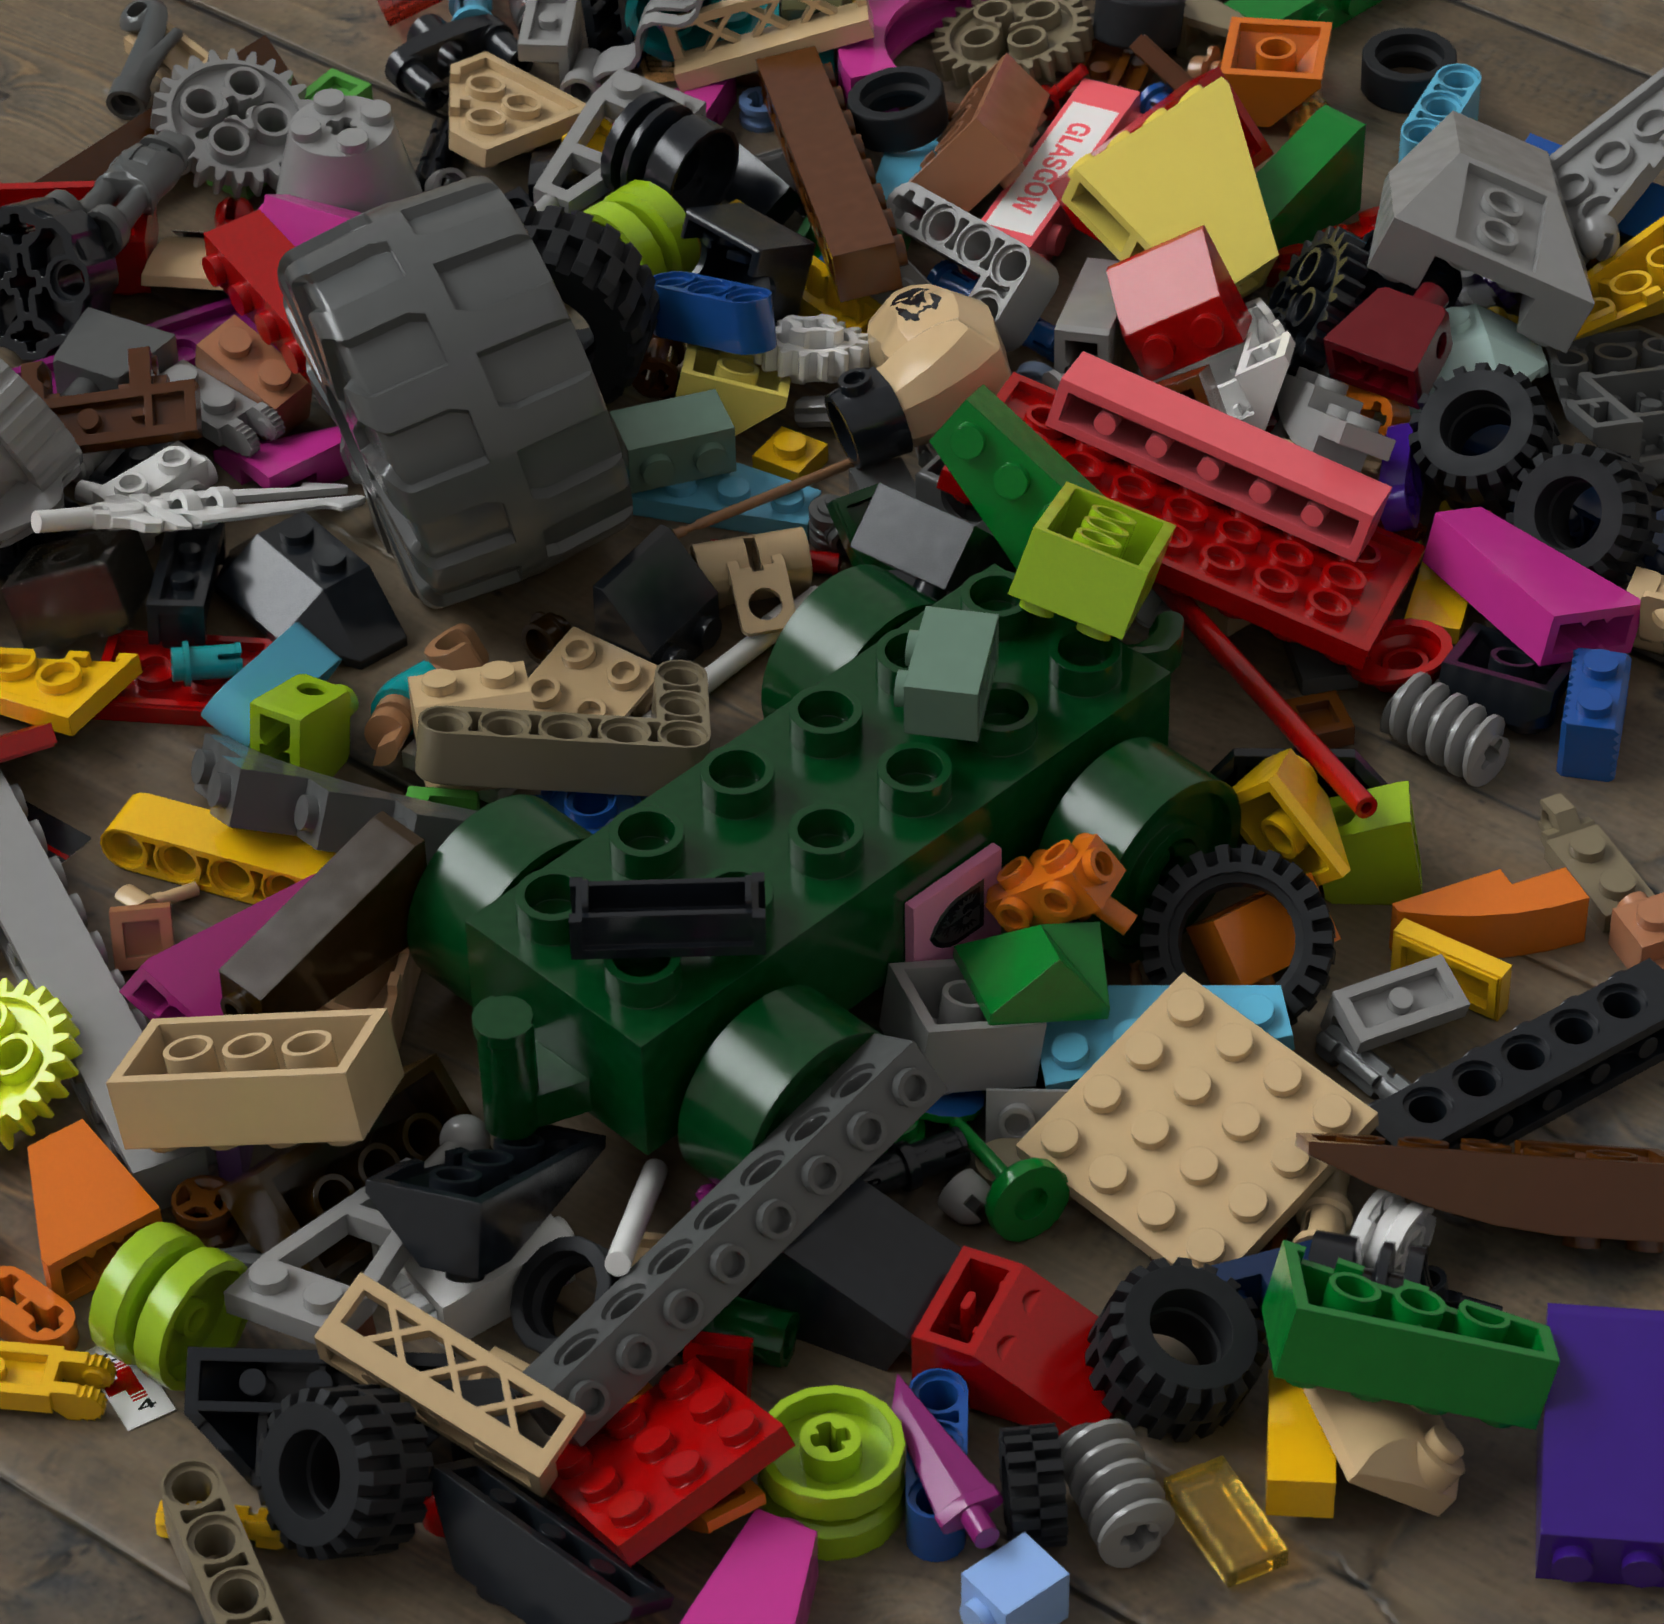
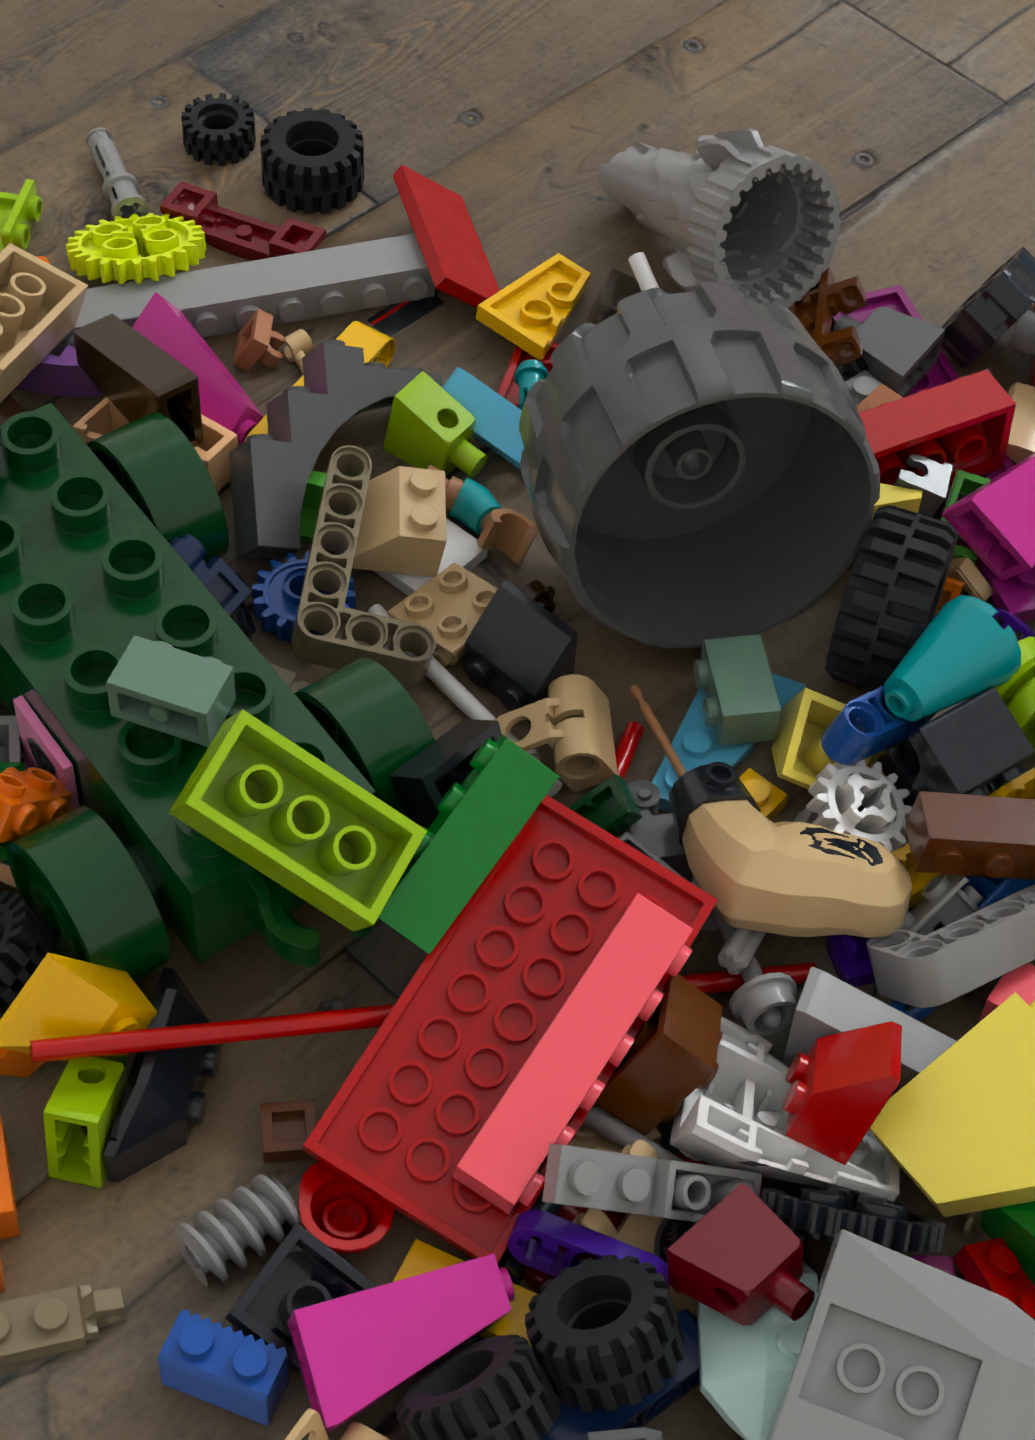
camera: 95 degrees right, 10 degrees up
(671, 228) = (953, 660): none -> teal cone

